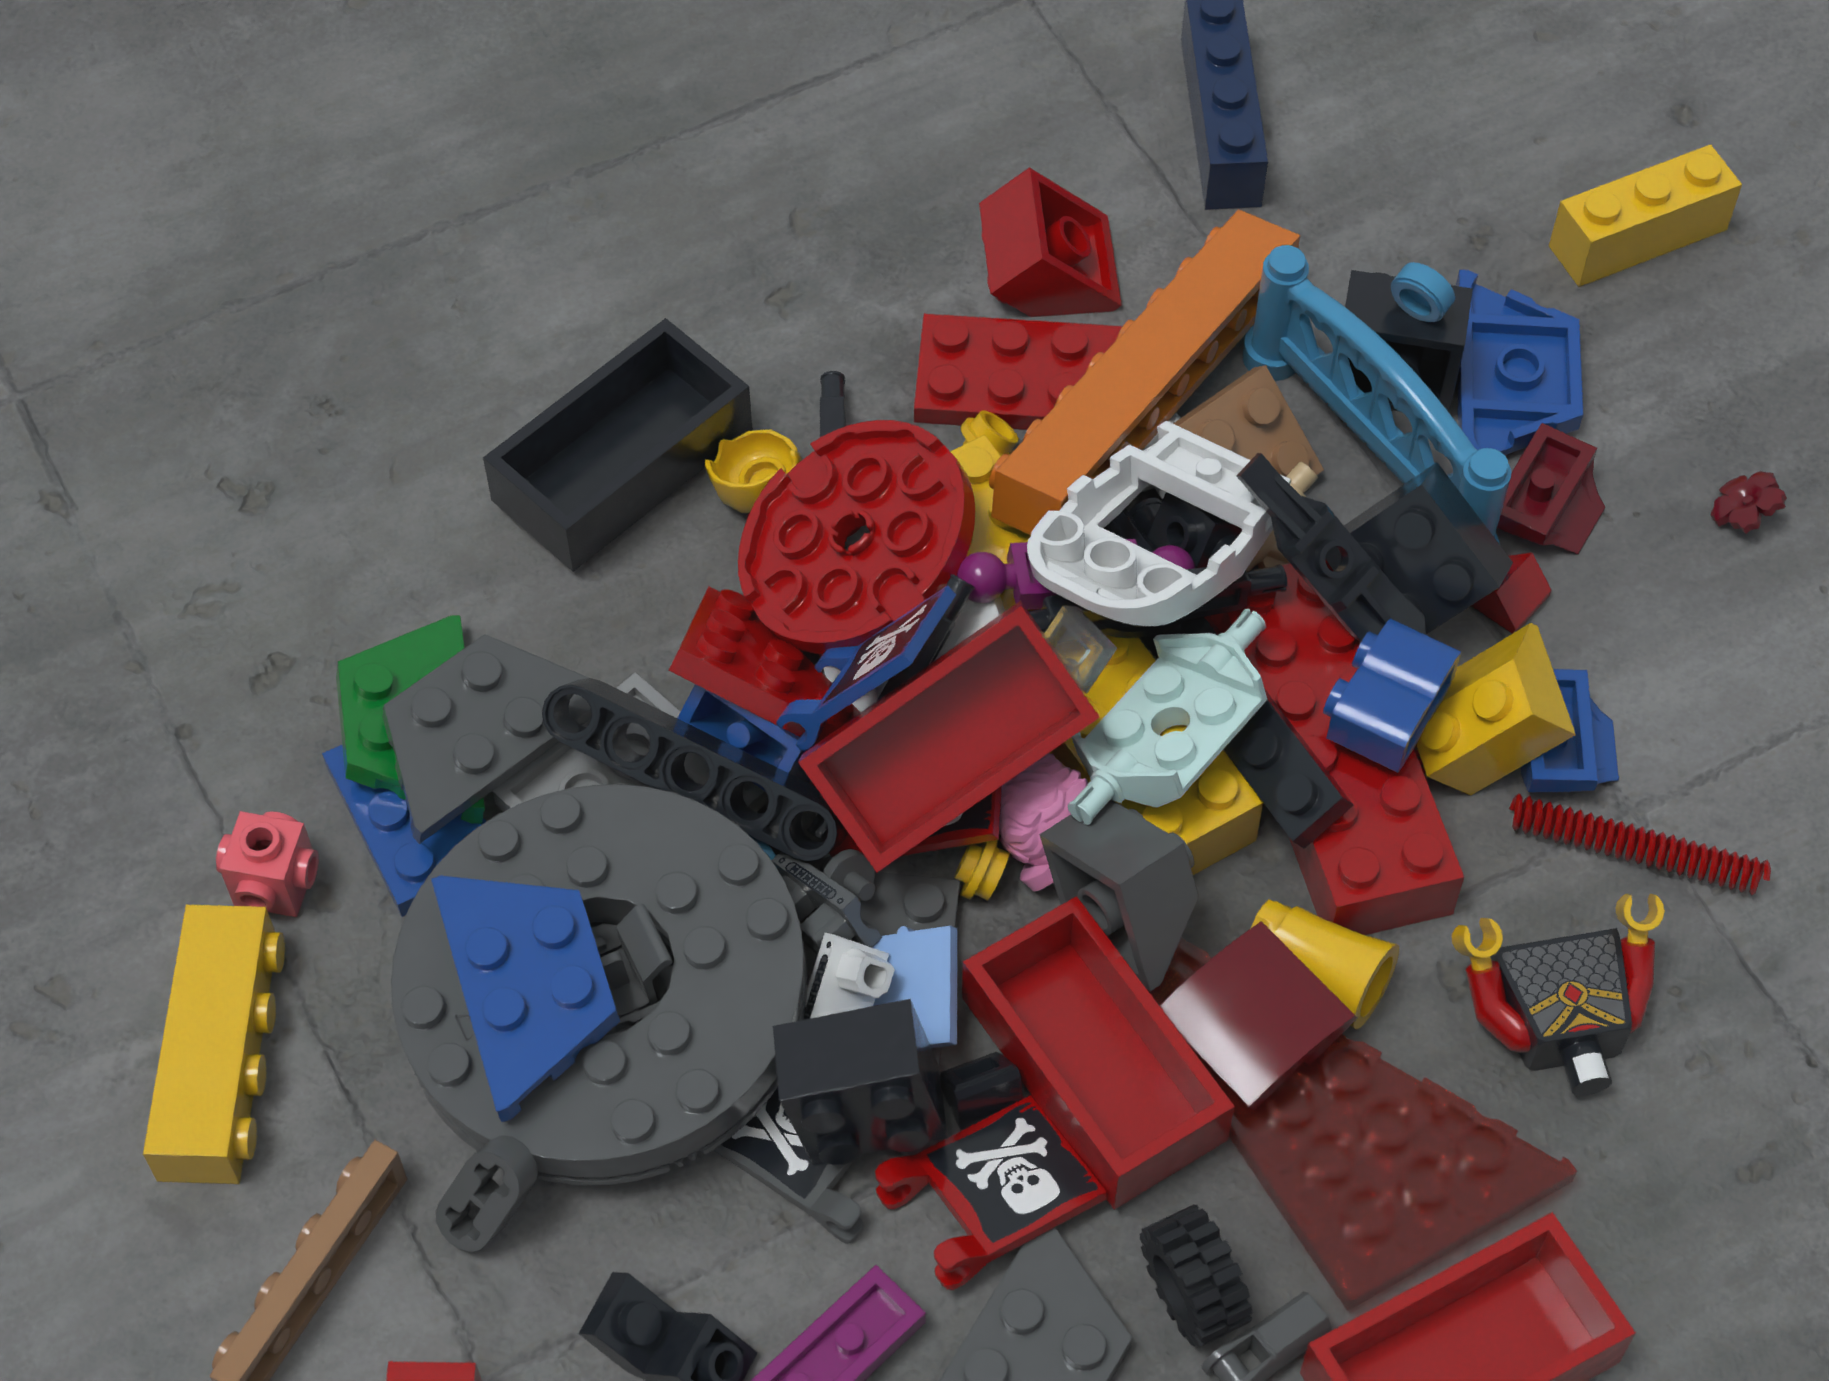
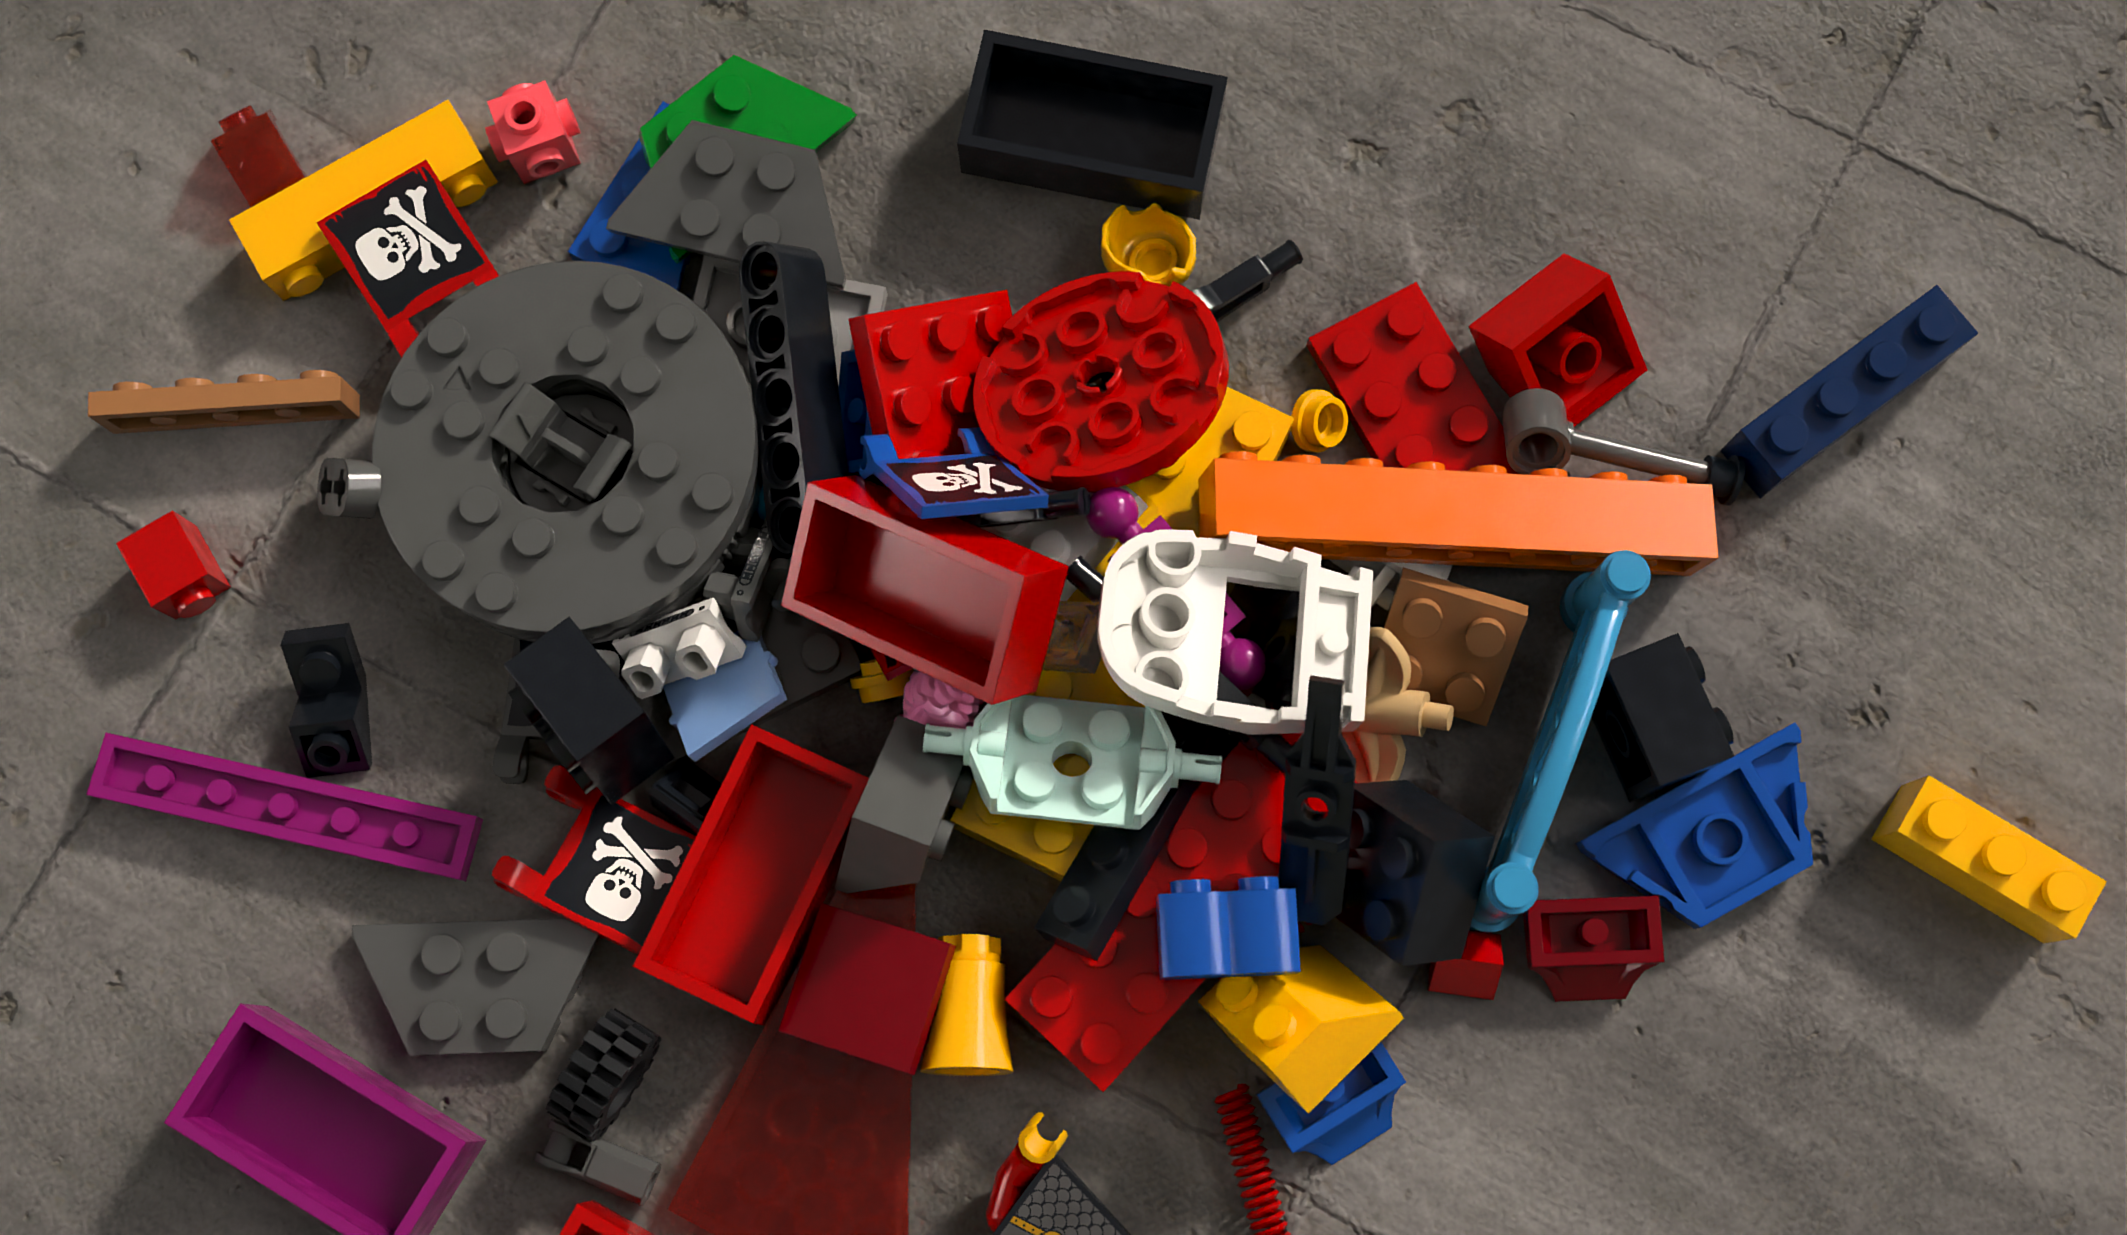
camera: 60 degrees right, 20 degrees up
(85, 1113) = (257, 154): none -> clear red bracket
(302, 1023) = (406, 249): none -> flag
(526, 979) = (502, 399): blue wing -> none
(1122, 291) = (1543, 438): none -> dark grey piece
(1422, 292) = (1679, 716): dark azure tile -> none
(1747, 500) = (1712, 1129): dark red plant -> none

